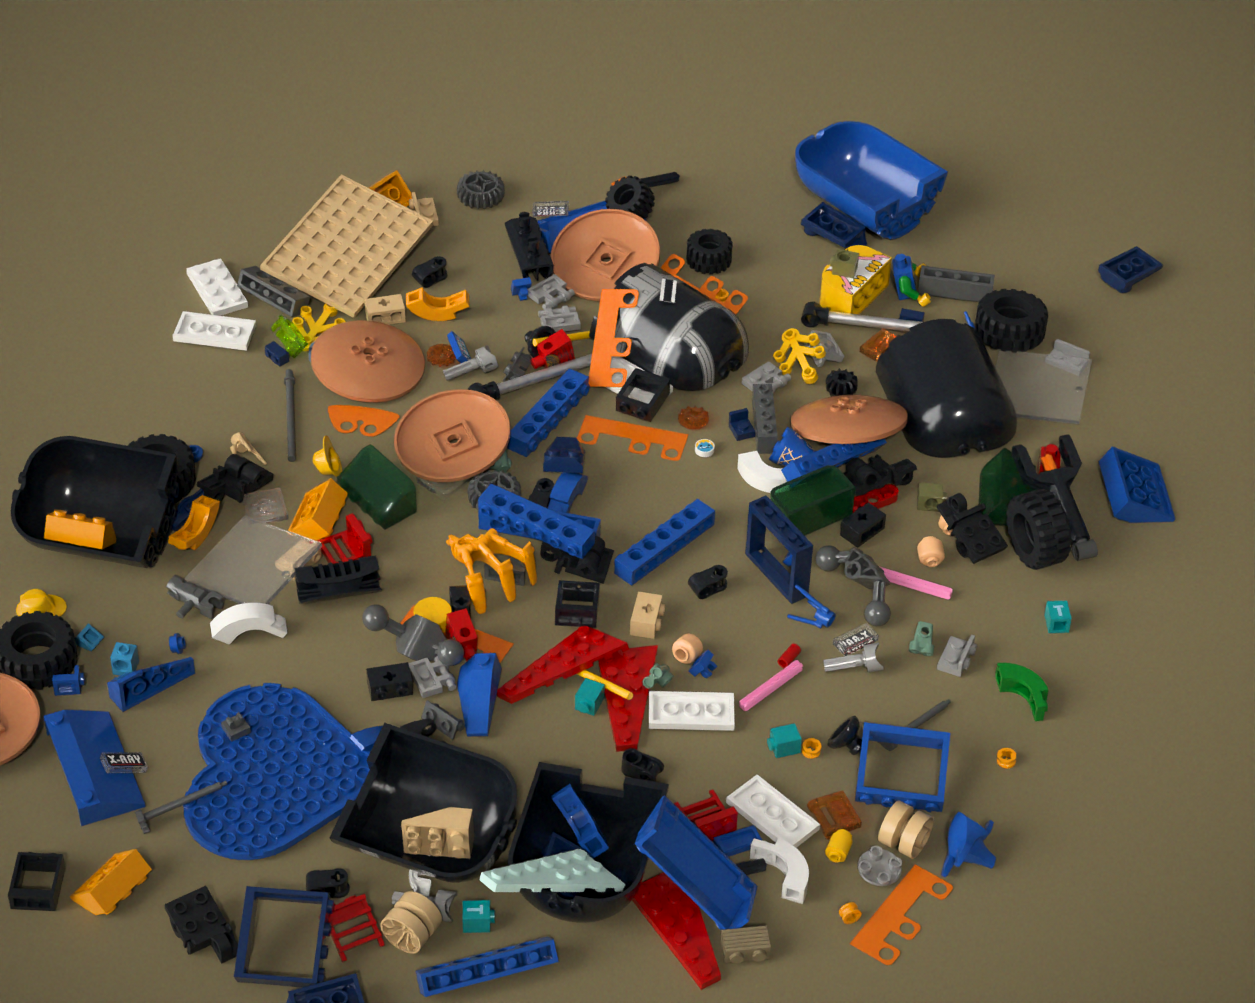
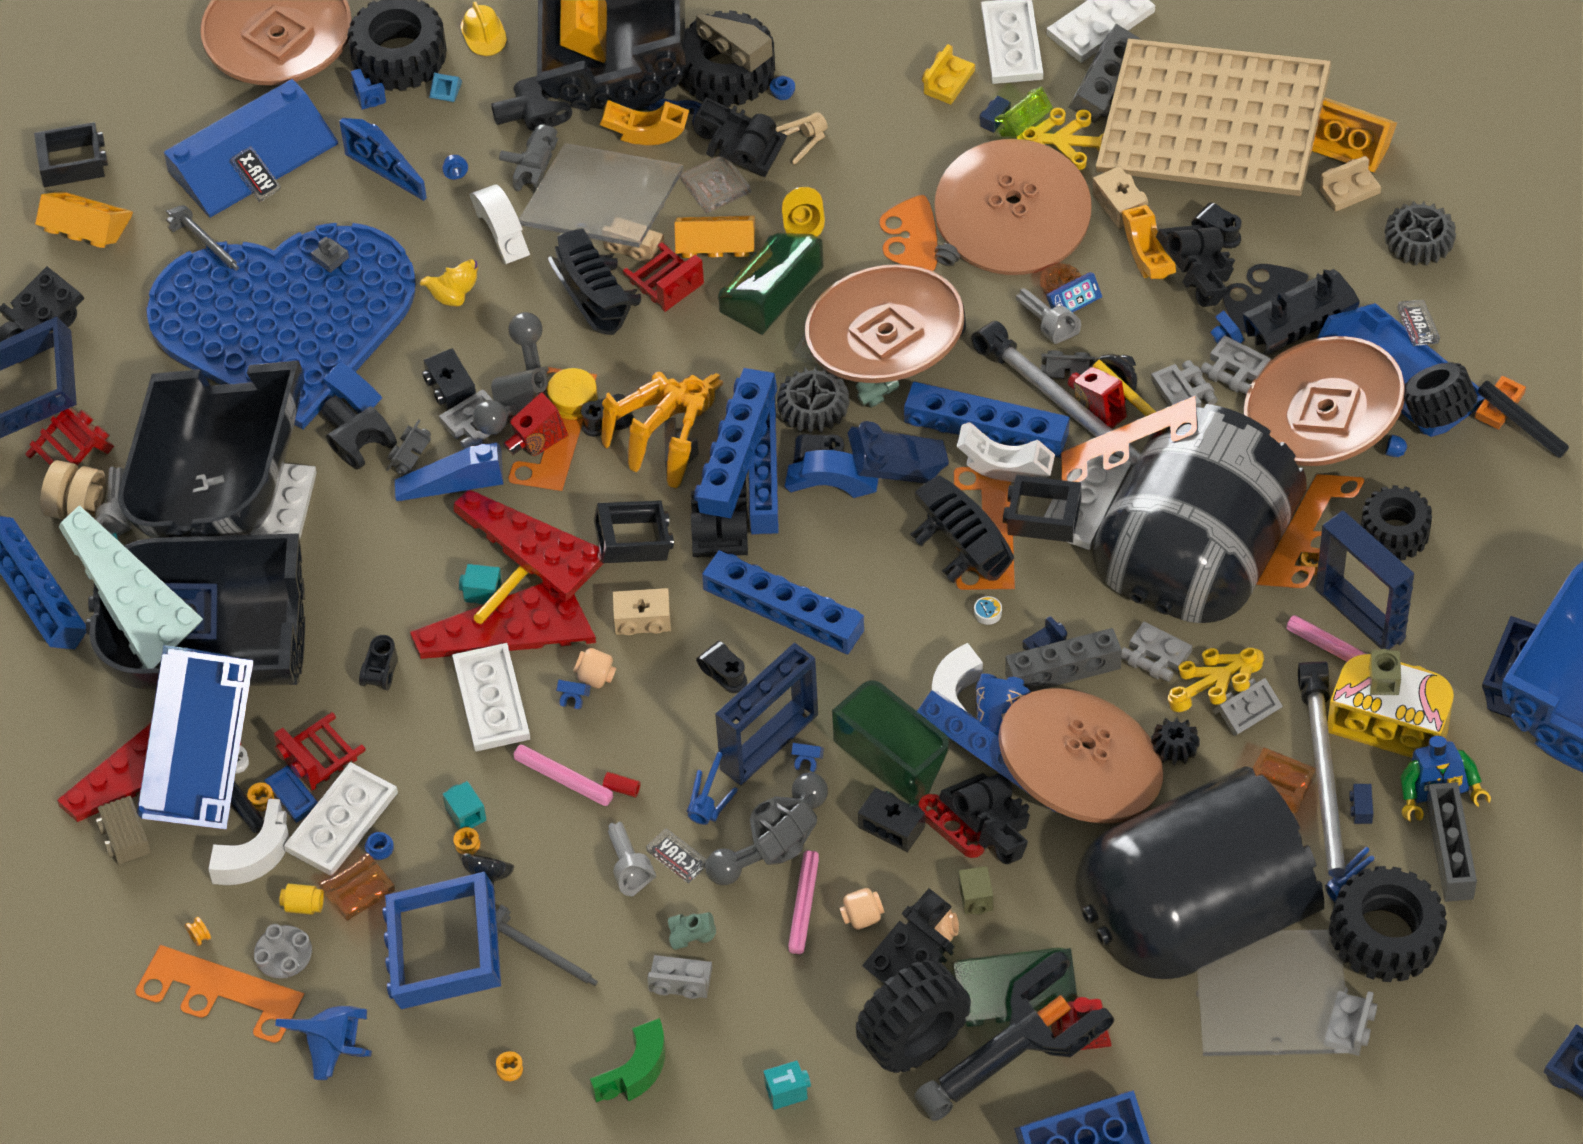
camera: 80 degrees right, 10 degrees up
(124, 658) = (411, 126): dark azure brick -> none
(137, 589) = (531, 105): none -> black connector
(170, 439) = (738, 40): none -> dark tan slope
(229, 369) = (947, 76): none -> yellow bracket
(289, 381) = (949, 142): dark grey bar -> none
(295, 660) = (453, 284): none -> yellow hair
(328, 882) = (124, 406): black piece -> none
(394, 401) = (946, 254): none -> dark grey plate
(440, 833) = (198, 481): tan slope -> none
(449, 283) = (1200, 255): none -> black plate
(492, 262) = (1280, 280): none -> black piece
(581, 821) = (258, 621): blue arch -> none
(590, 407) = (1004, 461): none -> white arch
(642, 435) = (966, 526): none -> black piece
(659, 674) = (539, 647): sand green plate -> none
(668, 290) = (1210, 466): sticker -> none
(689, 421) = (1044, 594): clear orange gear -> none
(736, 853) = (256, 791): none -> light orange bush
(775, 283) = (1345, 535): none -> dark blue window
(789, 302) = (1322, 639): none -> bright pink axle
(801, 796) = (379, 839): none -> blue plate
(906, 829) = (333, 960): tan wheel -> none

